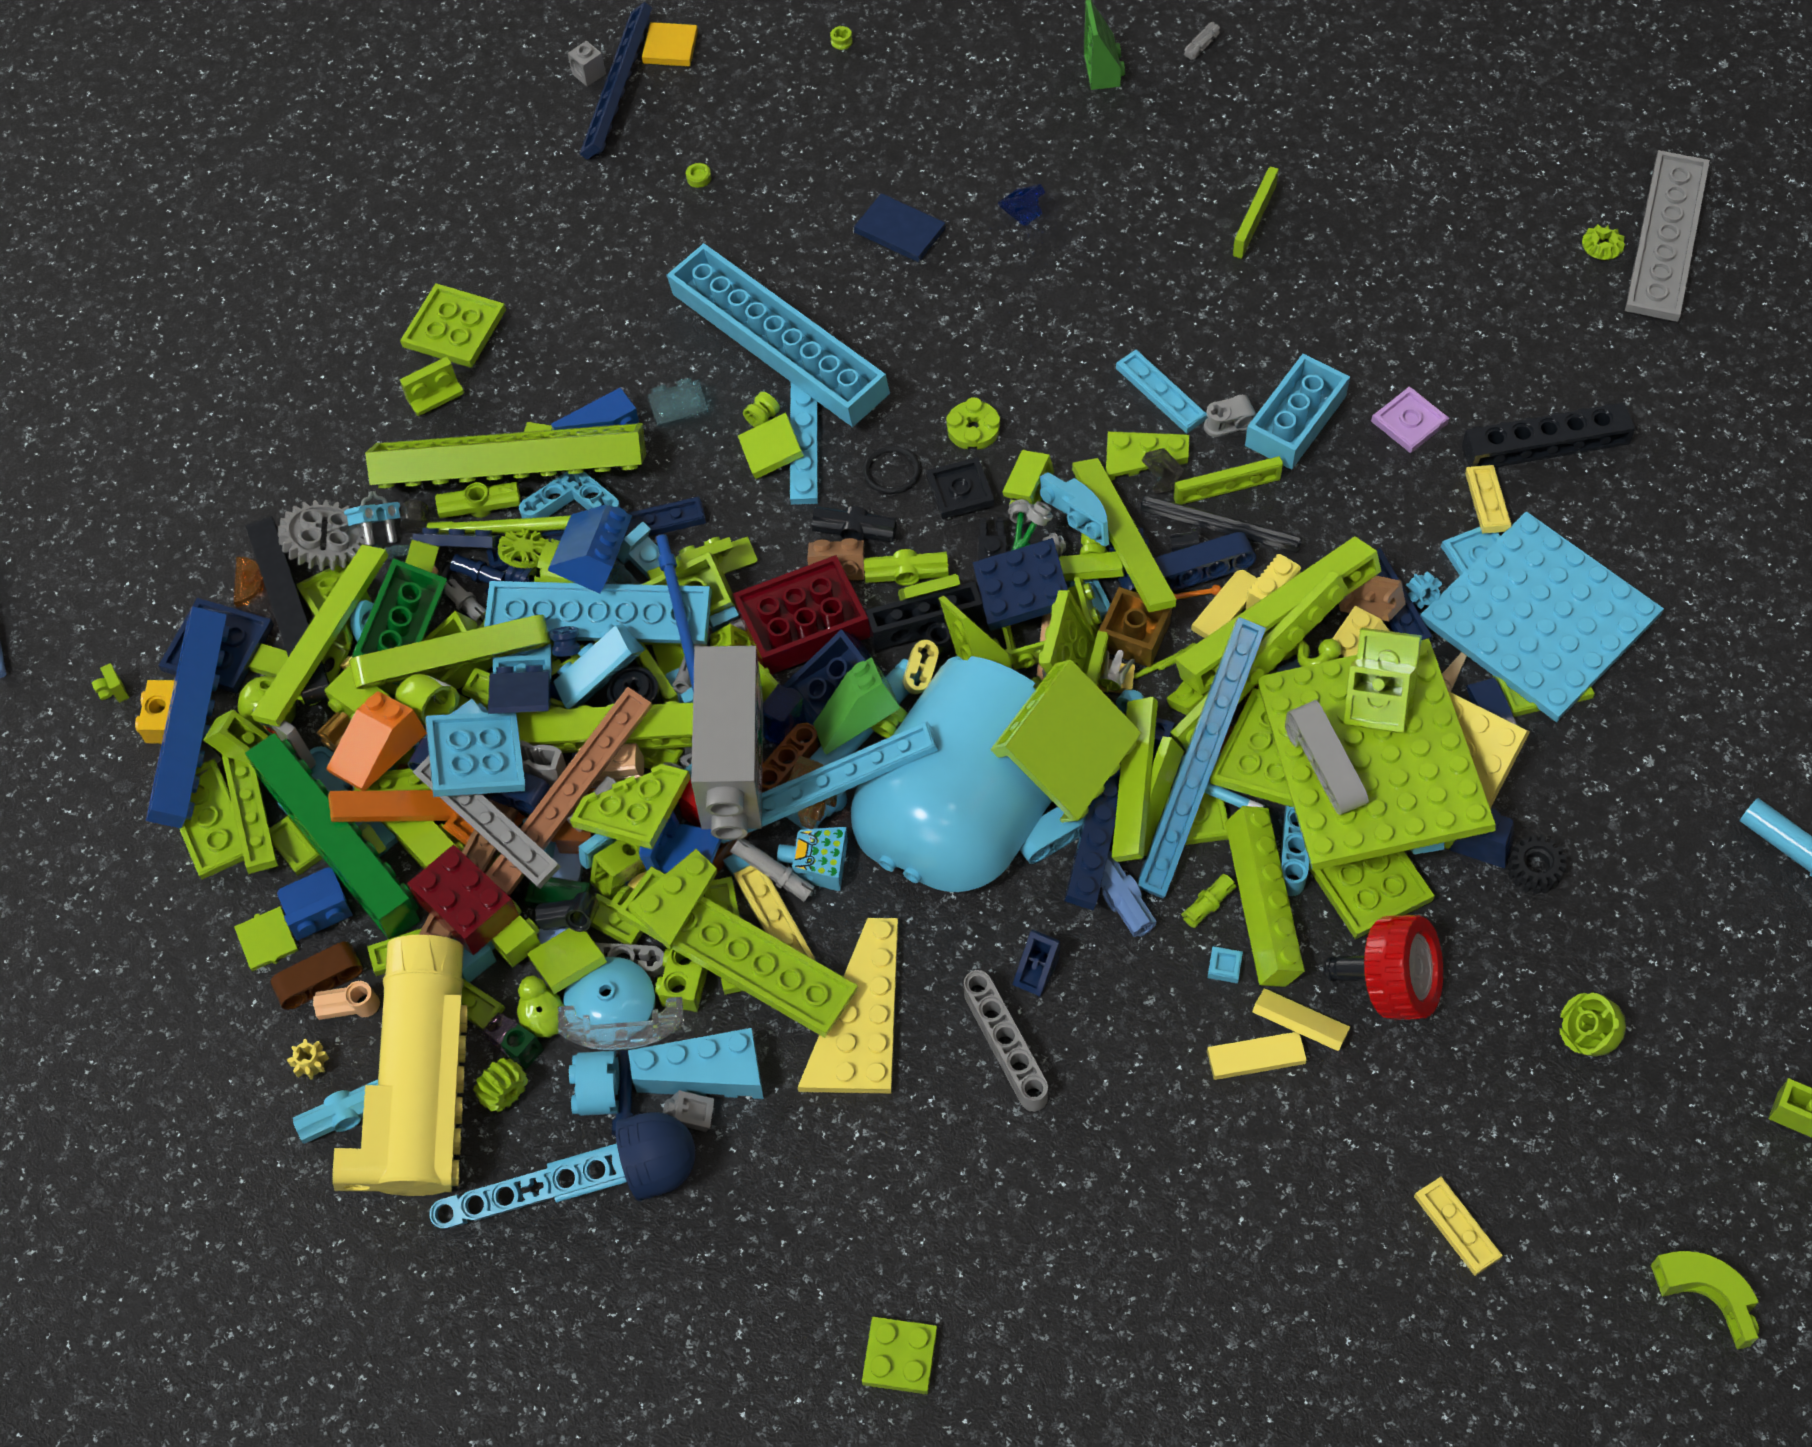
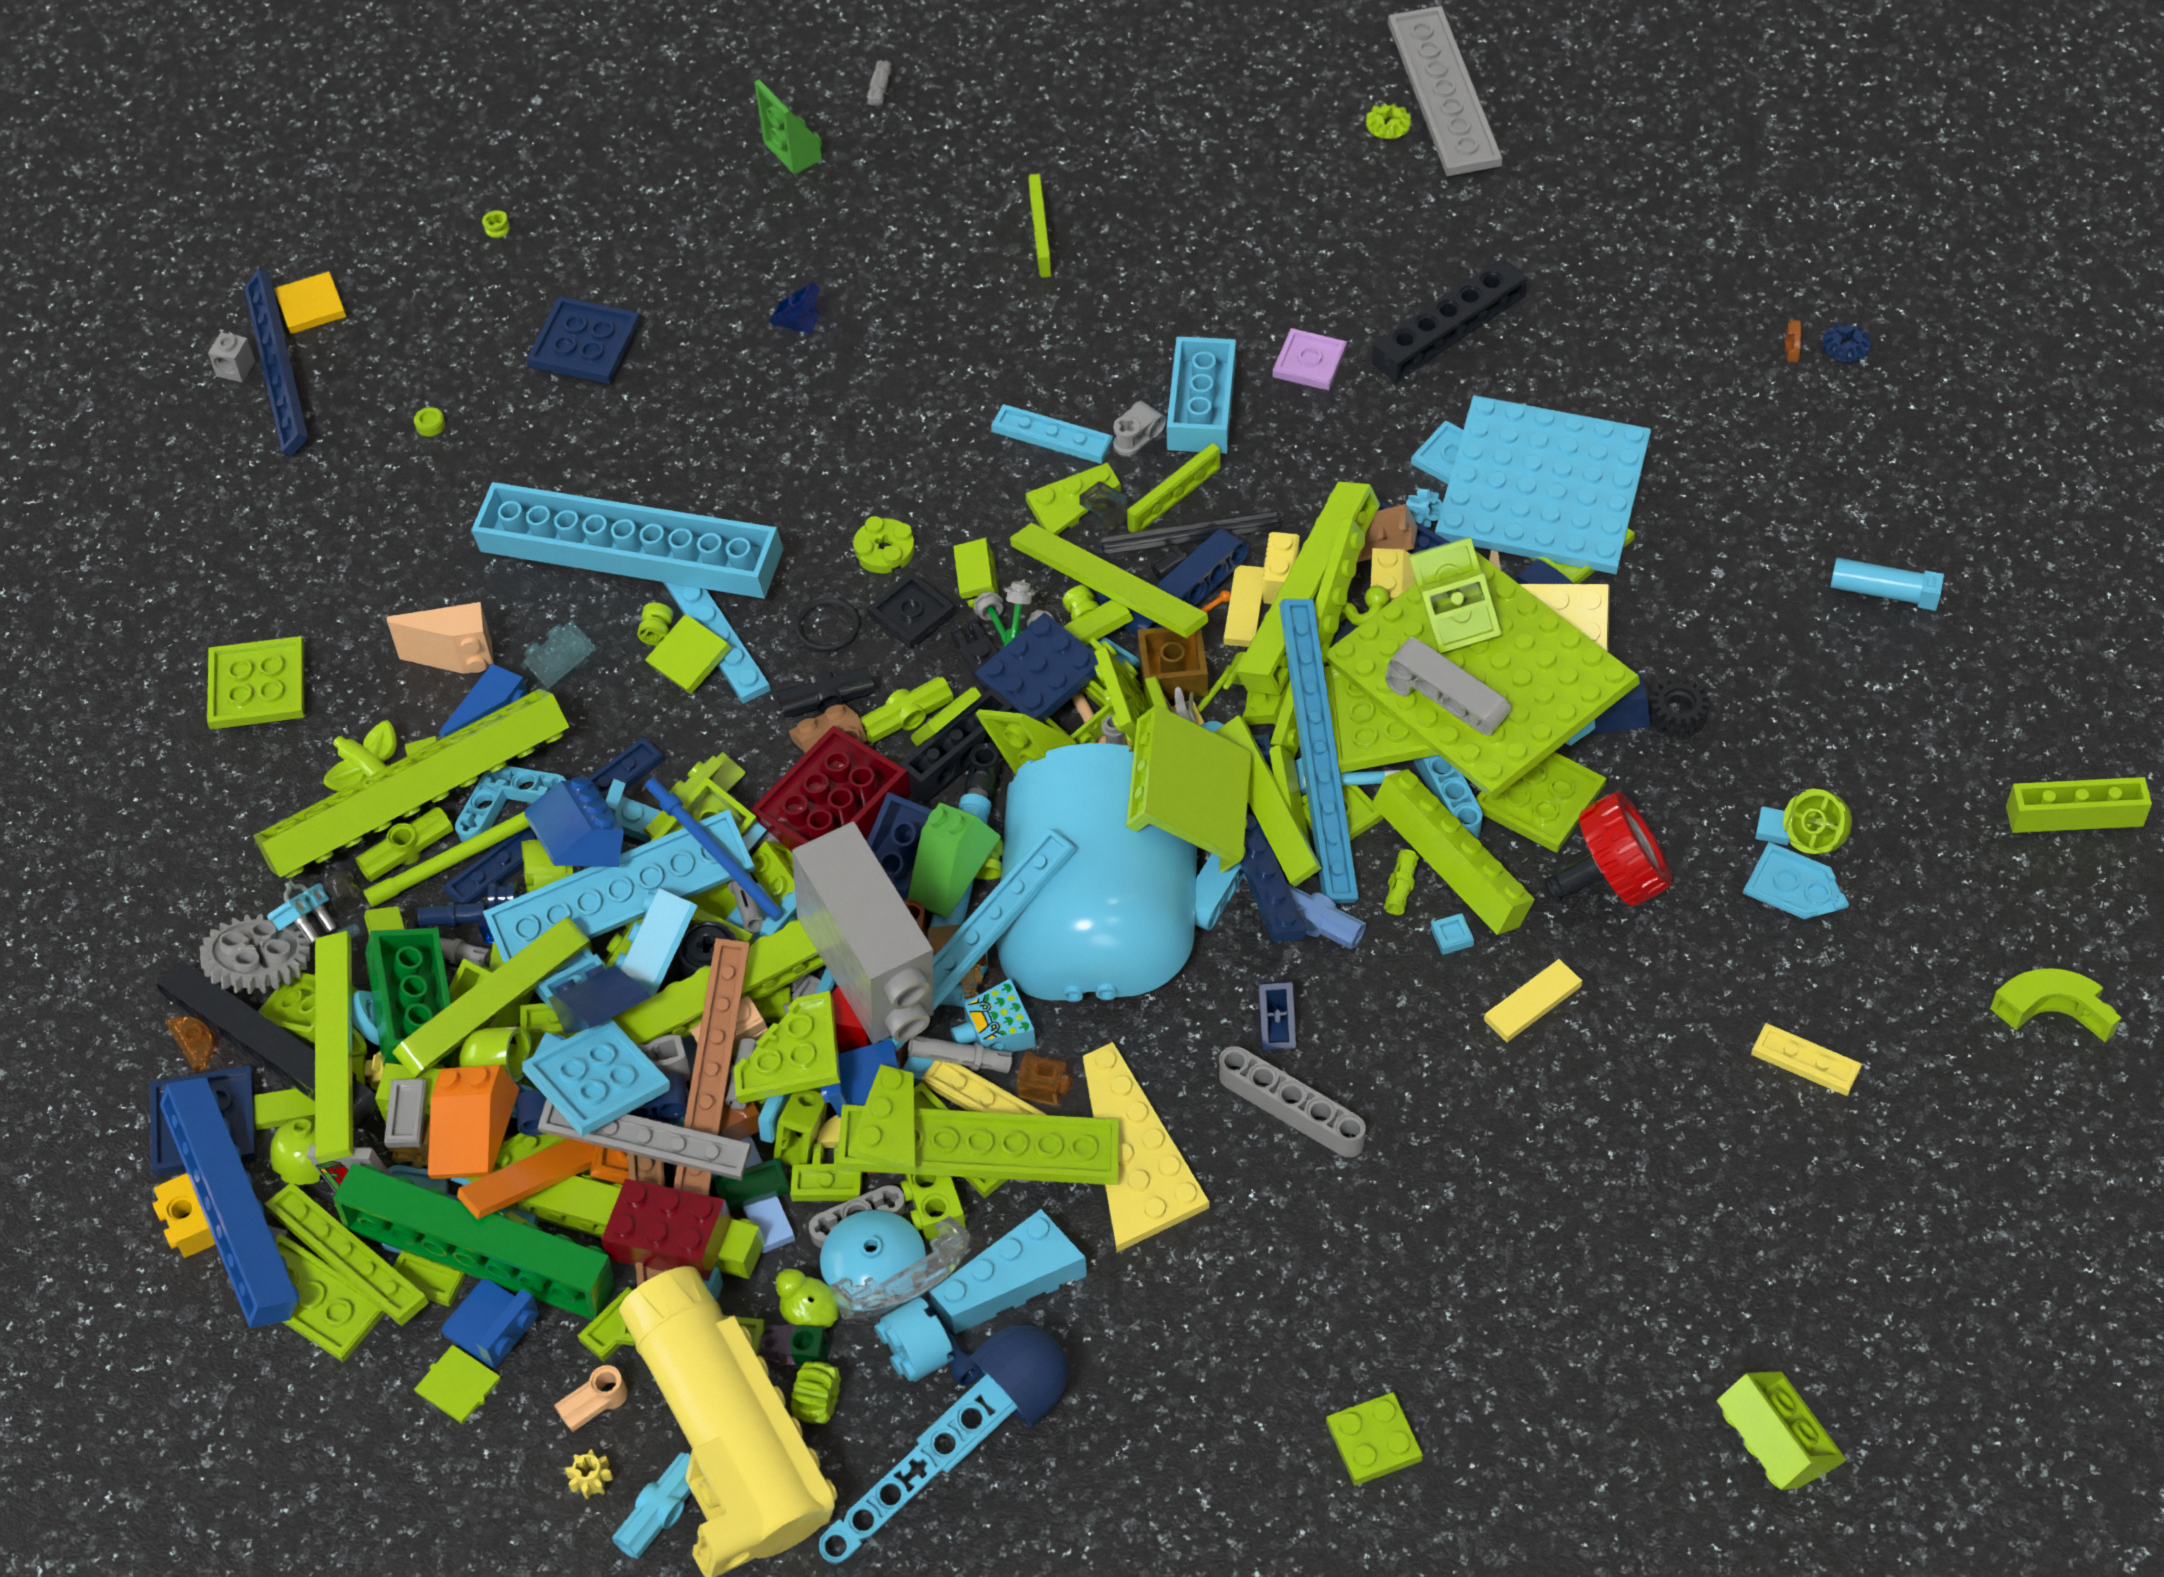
camera: 30 degrees left, 5 degrees down
(110, 685) = (107, 1214): lime tile -> none
(234, 735) = (300, 1195): lime slope -> none
(315, 974) = (541, 1388): reddish brown beam -> none
(336, 712) = (406, 1113): none -> light grey tile
(431, 386) = (275, 753): lime bracket -> none
(458, 538) = (411, 888): dark blue plate -> none
(489, 419) = (361, 760): none -> lime plant
(523, 547) = (490, 866): lime wheel -> none
(565, 641) = (605, 933): dark blue wheel -> none
(566, 958) = (805, 1238): lime tile -> none
(573, 913) = (779, 1194): black piece -> none
(602, 352) = (444, 638): none -> light nougat slope
(691, 1109) = (1024, 1313): light grey bracket -> none
(834, 930) = (1041, 1089): none -> clear orange window
(848, 158) = (583, 340): none -> dark blue plate
(899, 227) = (682, 386): dark blue tile -> none
(914, 665) = (993, 793): light yellow beam -> none
(1079, 503) = (1048, 570): medium azure slope -> none
(1301, 1019) = (1554, 947): light yellow tile -> none
(1488, 499) = (1429, 400): light yellow tile -> none
(1543, 1067) = (1795, 883): none -> medium azure tile
(1552, 1006) = (1771, 826): none -> medium azure tile

